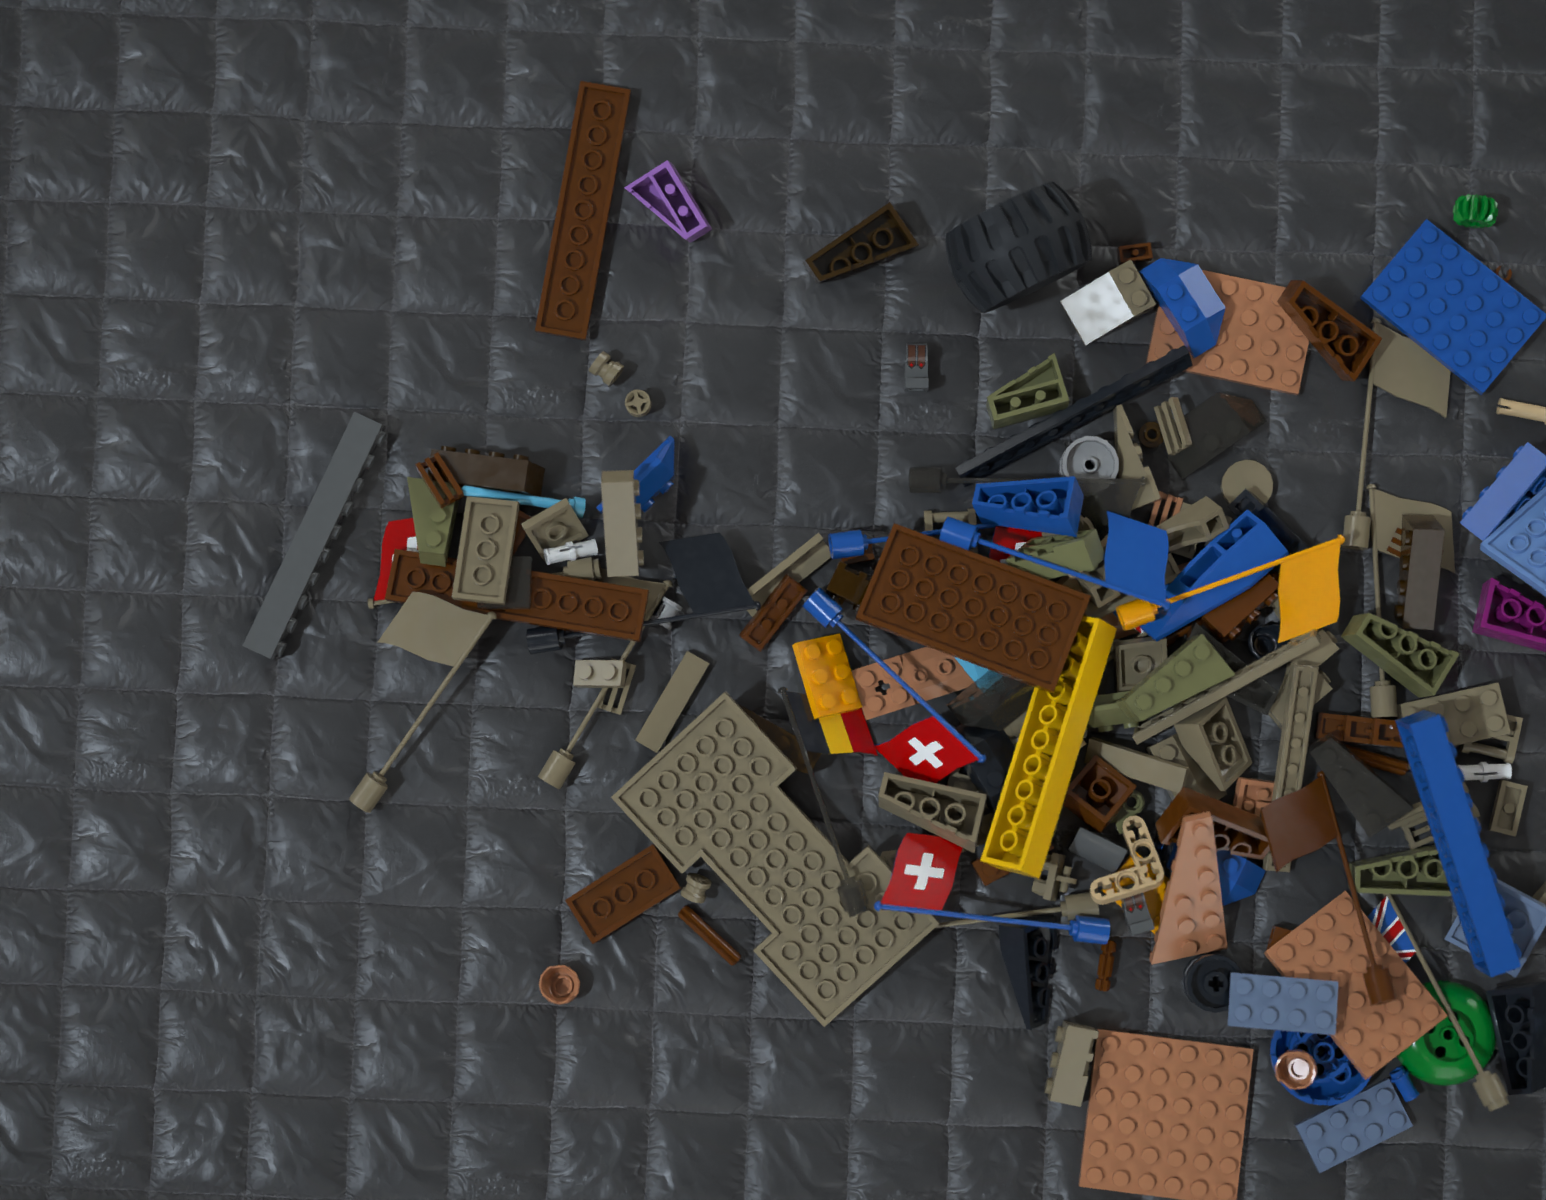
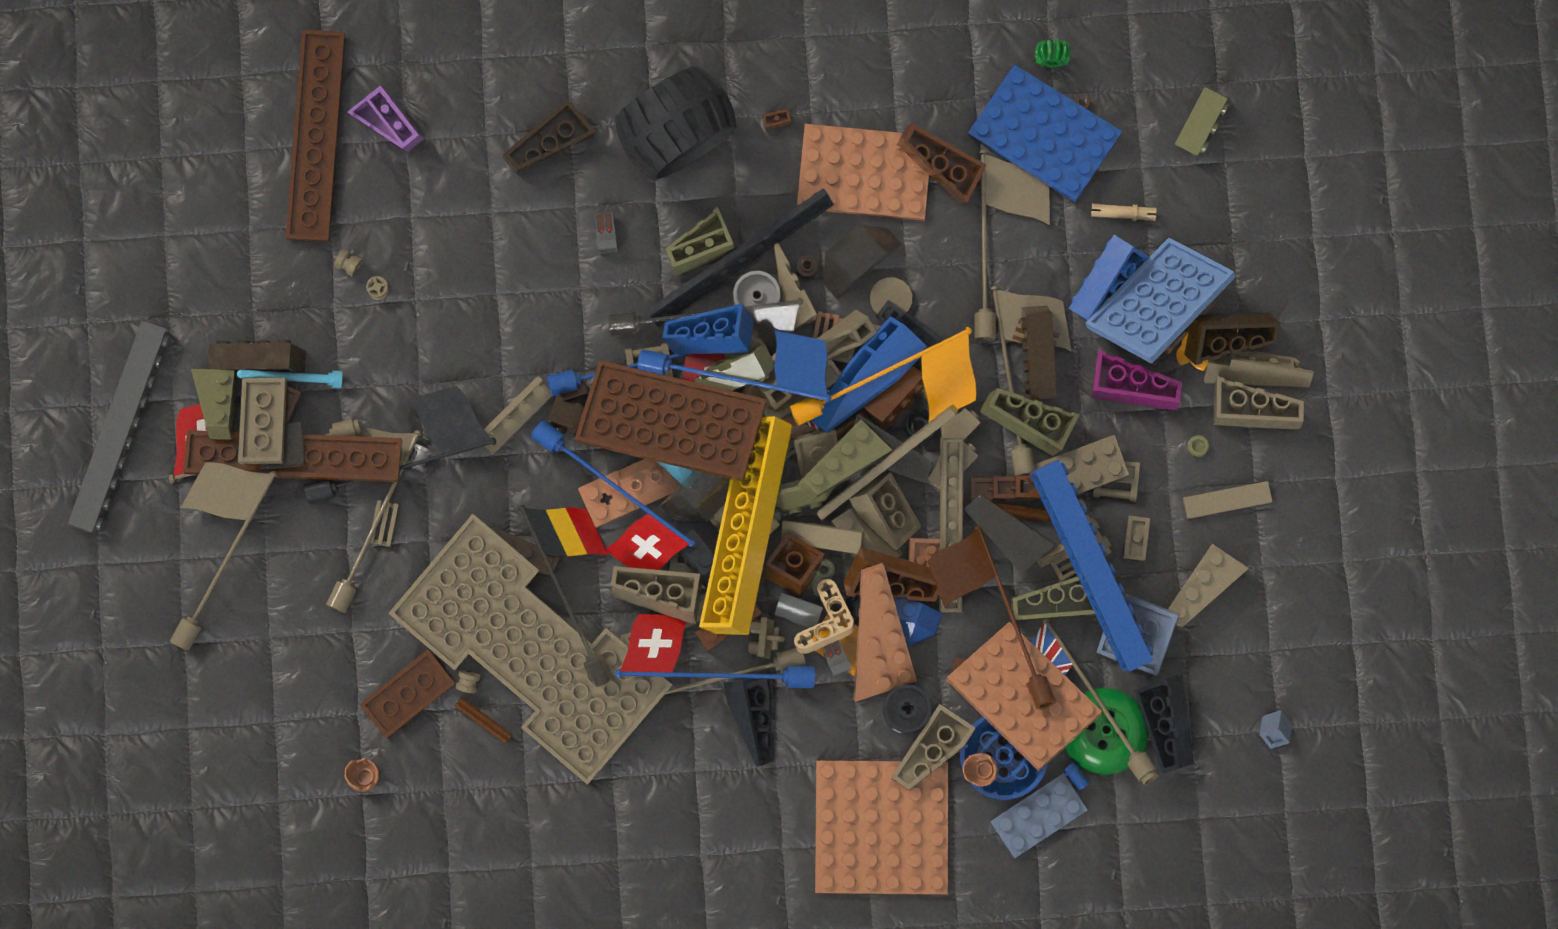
camera: 10 degrees left, 5 degrees down
(429, 463) = (209, 355): reddish brown tile -> none
(554, 527) = (318, 398): dark tan plate -> none
(570, 551) = (334, 416): white pin -> none
(600, 674) = (369, 513): dark tan plate -> none
(621, 523) = (372, 384): dark tan wedge -> none
(654, 474) = (389, 353): blue wedge -> none
(672, 702) = (432, 530): dark tan tile -> none
(773, 612) = (508, 447): reddish brown tile -> none
(827, 676) = (558, 493): light orange plate -> none
(1070, 1063) = (796, 790): dark tan wedge -> none
(1105, 966) = (817, 707): reddish brown axle -> none
(1108, 303) = (759, 162): slope -> none
(1170, 427) = (820, 257): dark tan tile -> none
(1187, 302) = (823, 153): blue wedge -> none
(1227, 1046) = (936, 743): none -> dark tan wedge
(1283, 1003) = (963, 716): sand blue plate -> none
(1486, 771) = (1126, 510): white pin -> none

